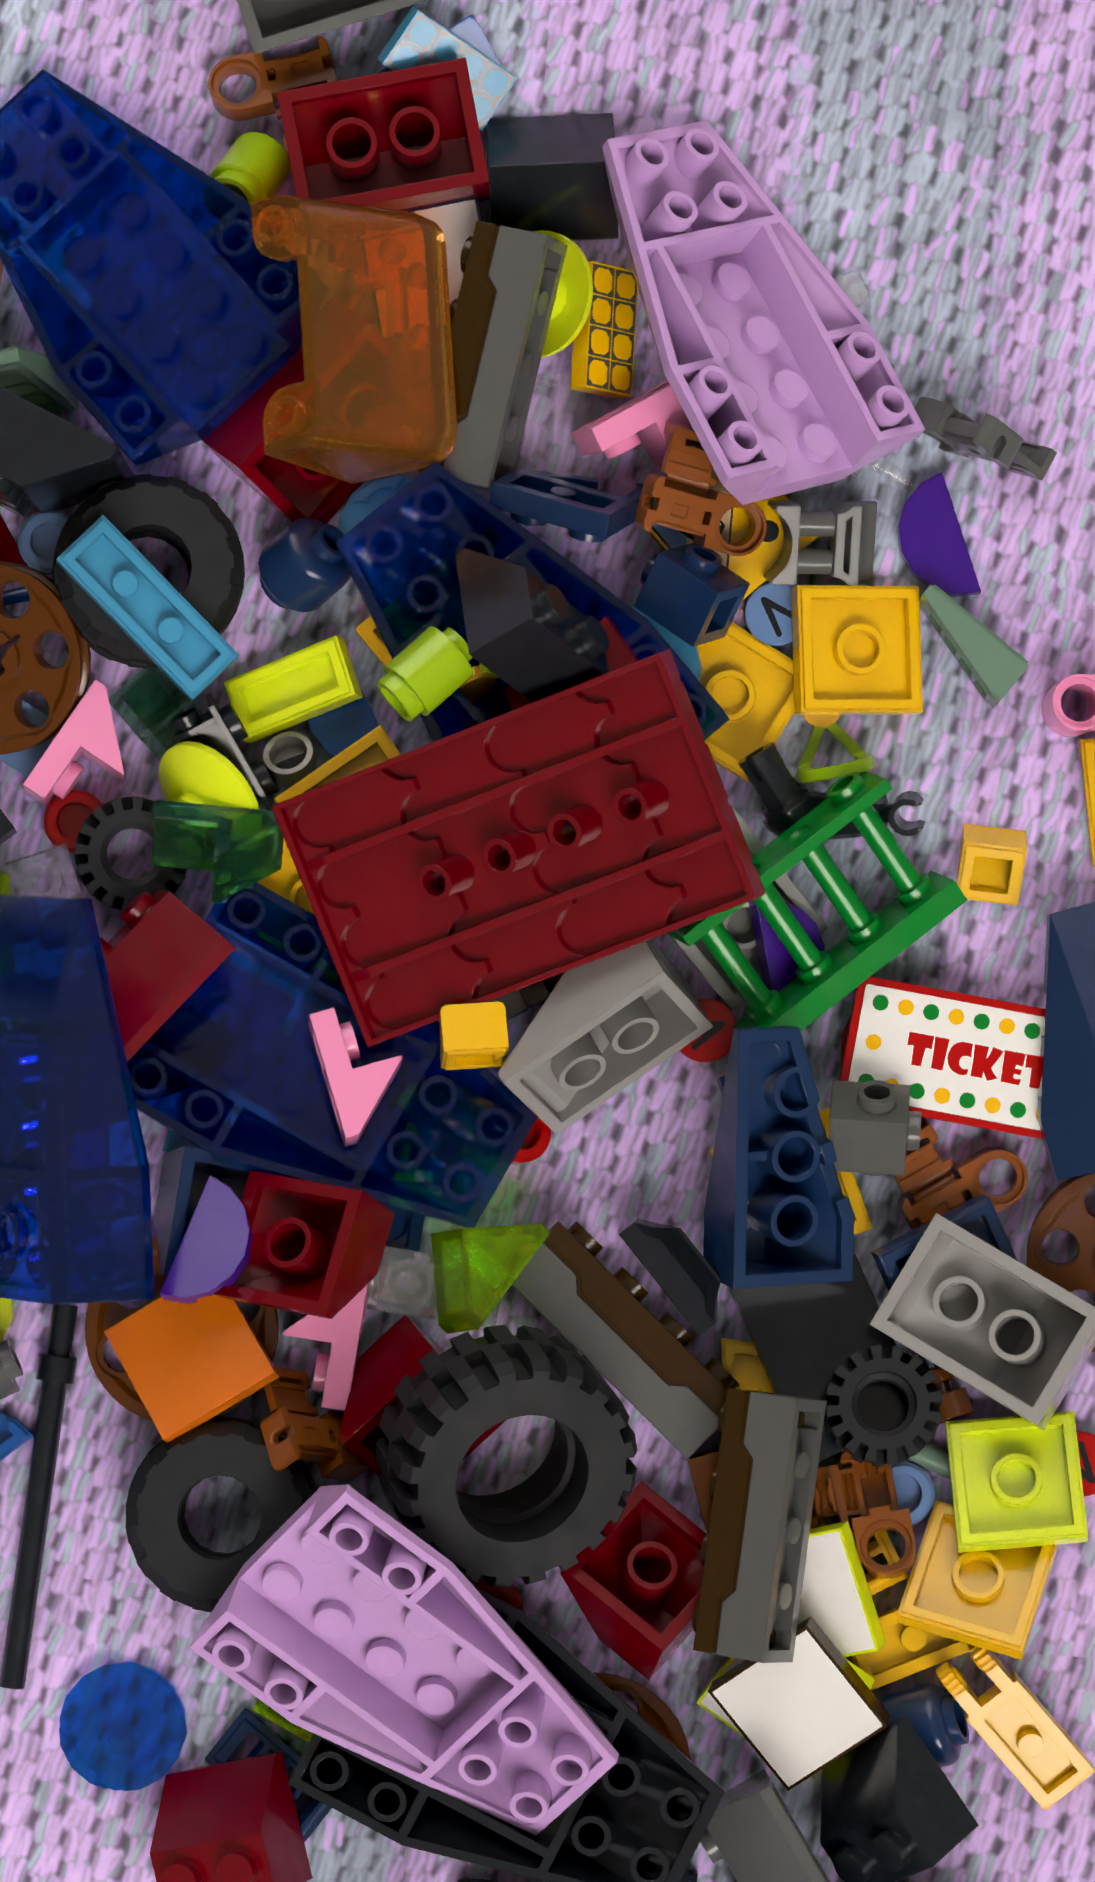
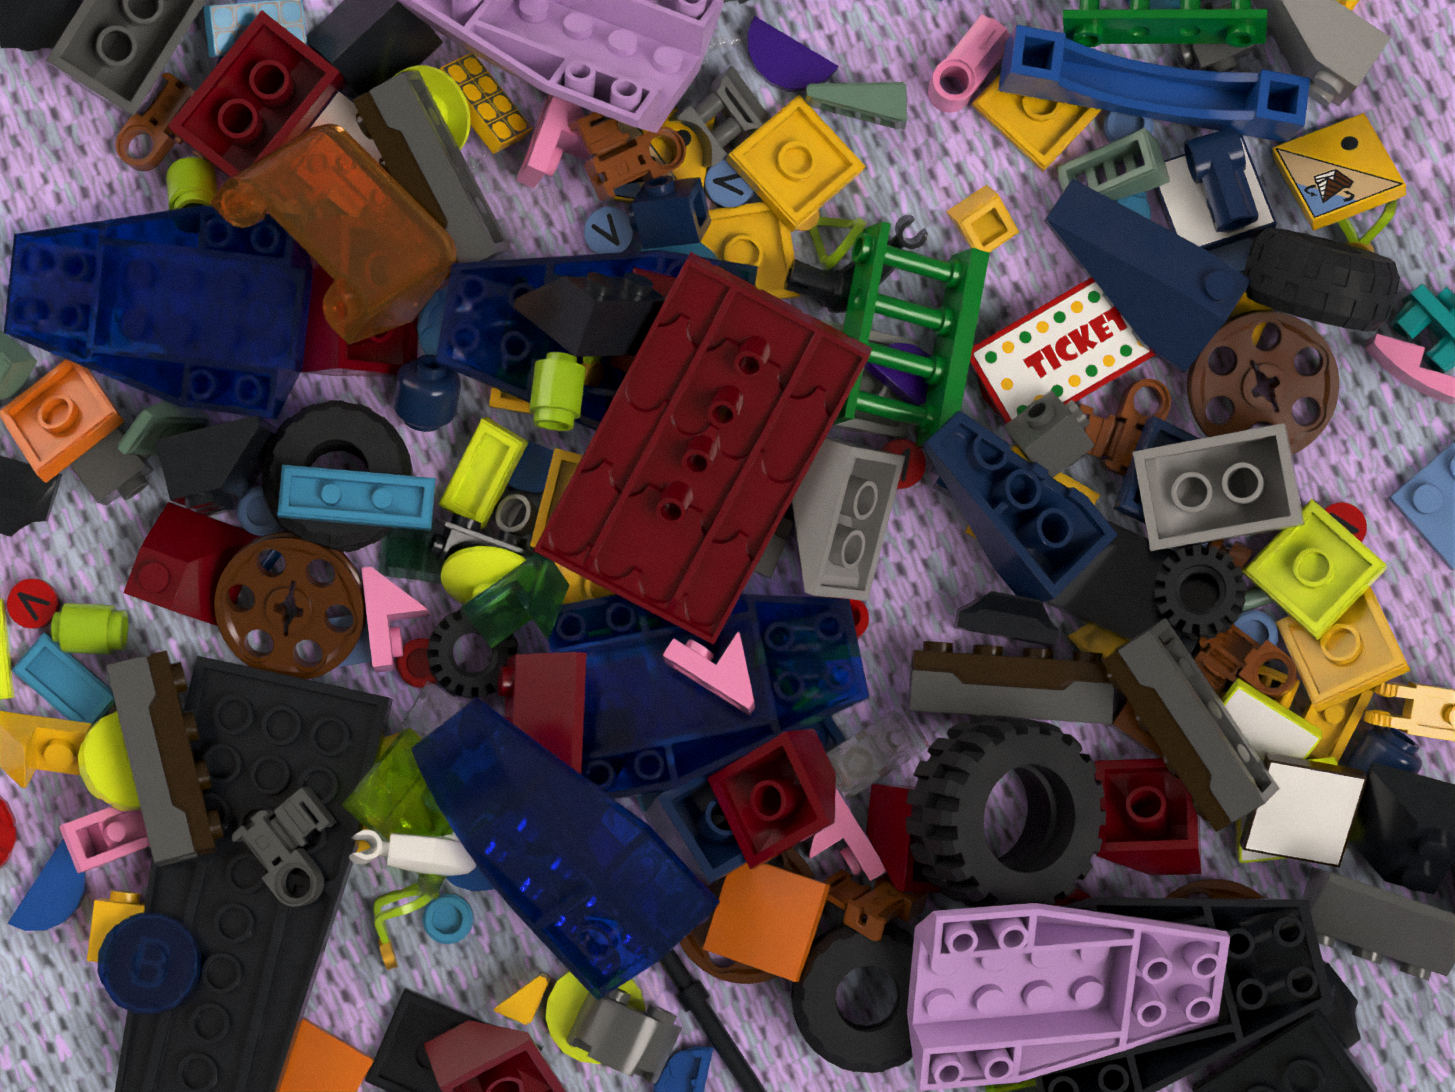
camera: 40 degrees left, 0 degrees up
(212, 1248) = (726, 841): dark purple tile -> none
(473, 1035) = (771, 583): yellow slope -> none
(477, 1269) = (893, 719): clear neon green slope -> none
(565, 501) = (548, 222): dark blue wing -> none
(618, 561) = (608, 231): none -> medium blue tile

